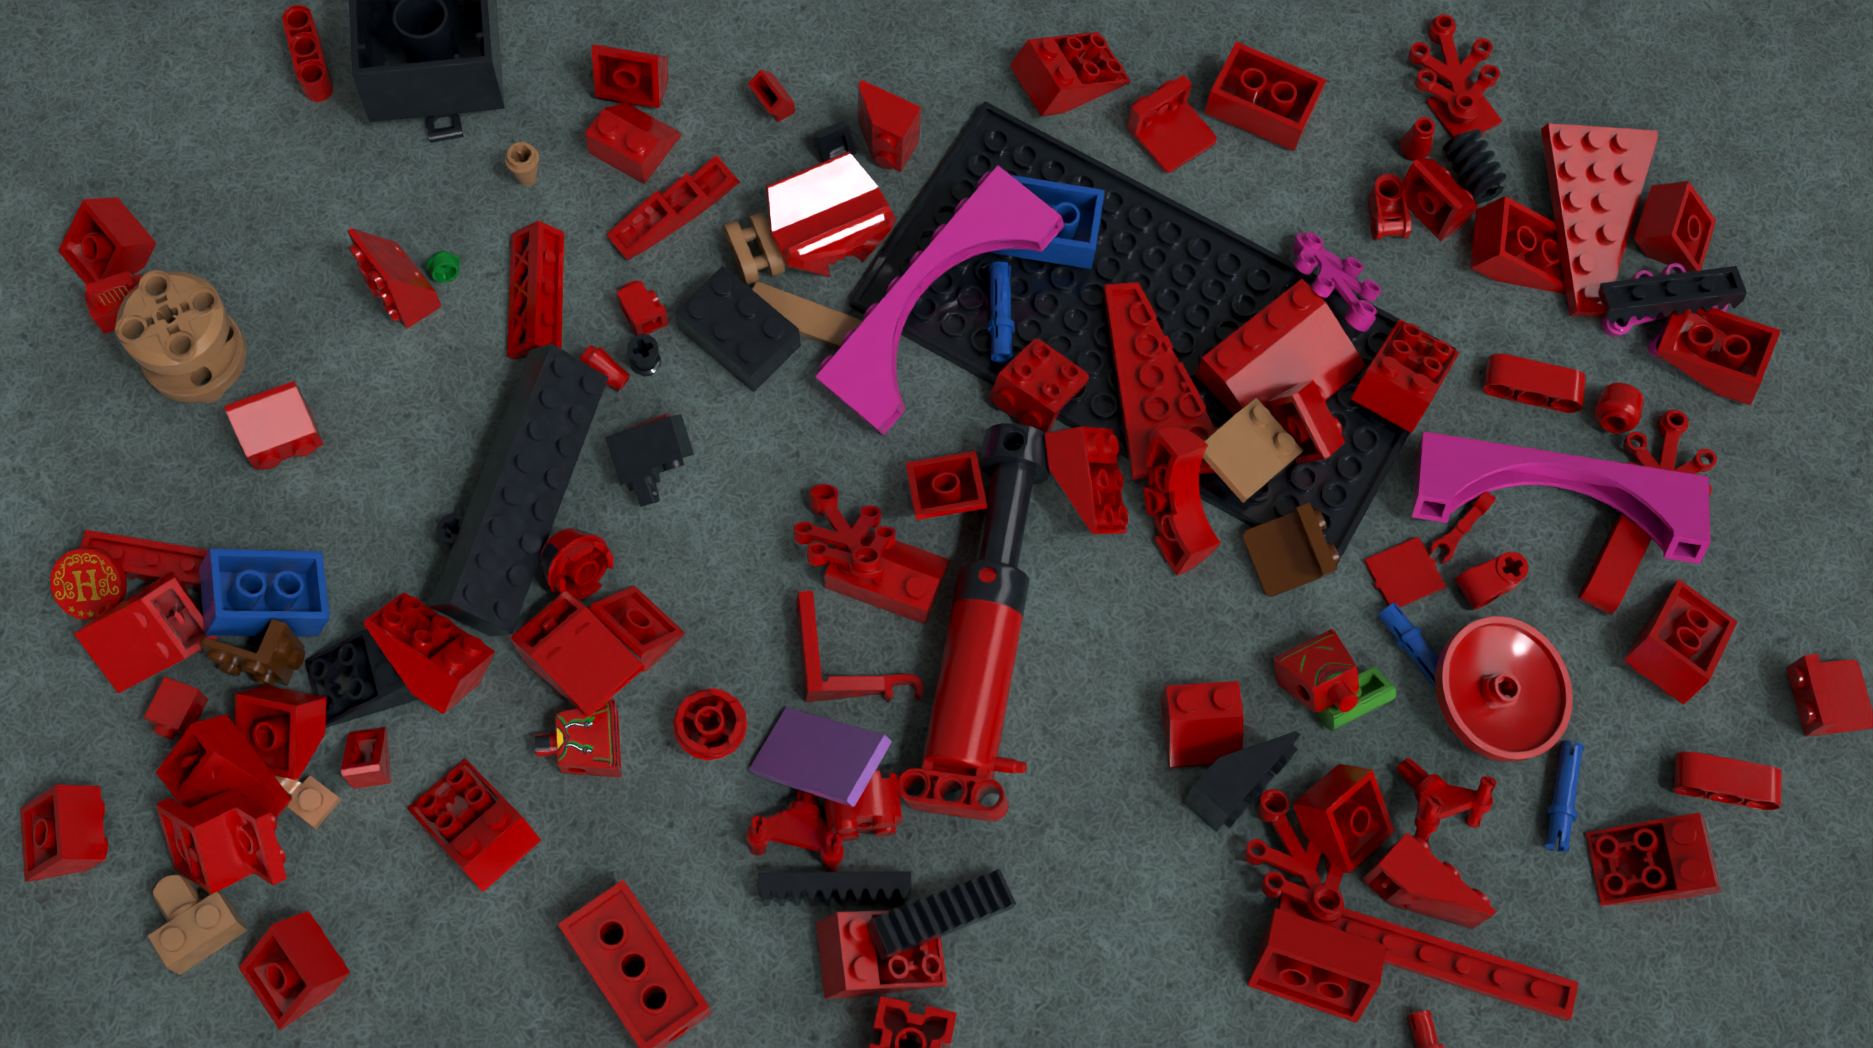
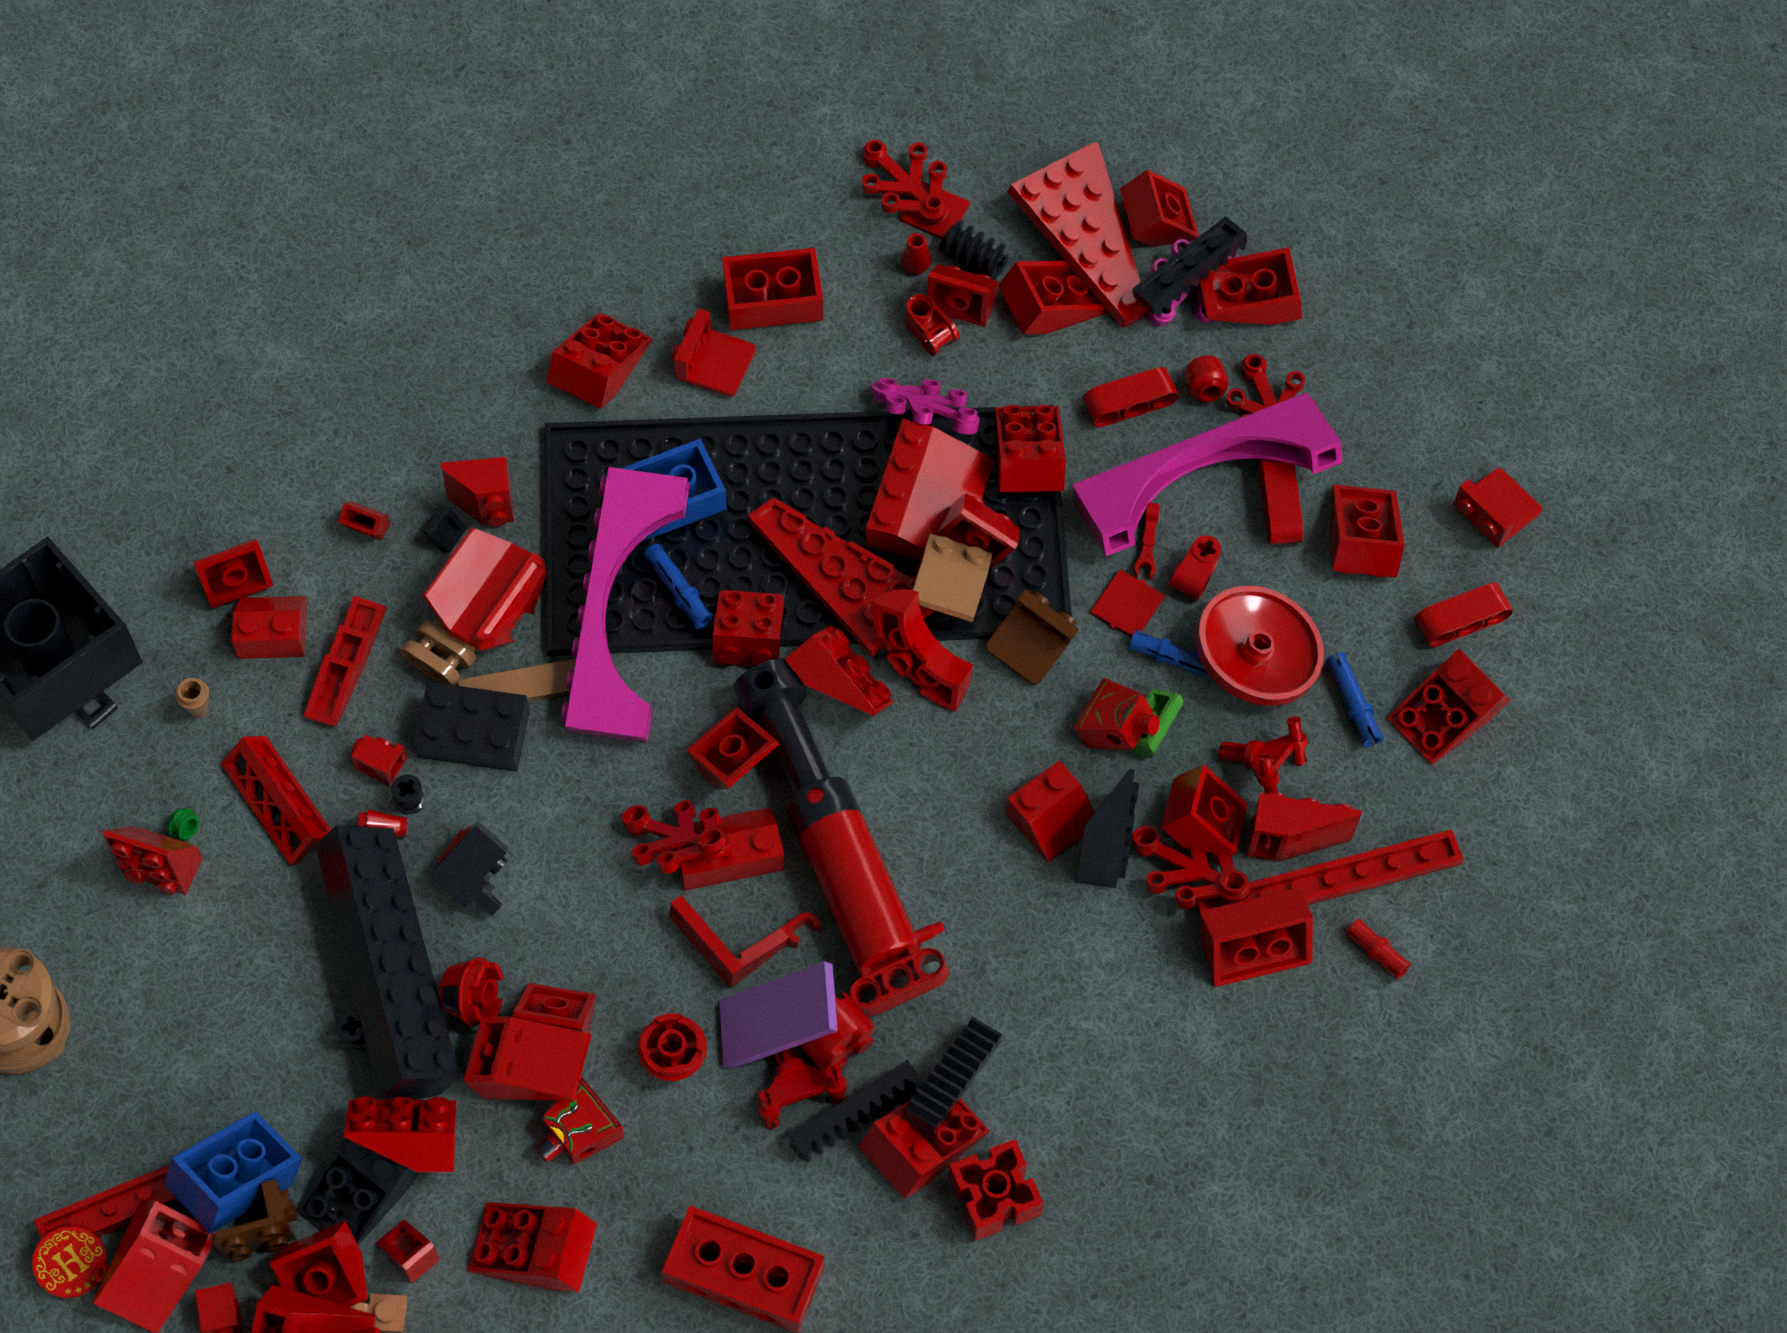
camera: 30 degrees left, 5 degrees down
(274, 426) = (139, 1037): slope -> none

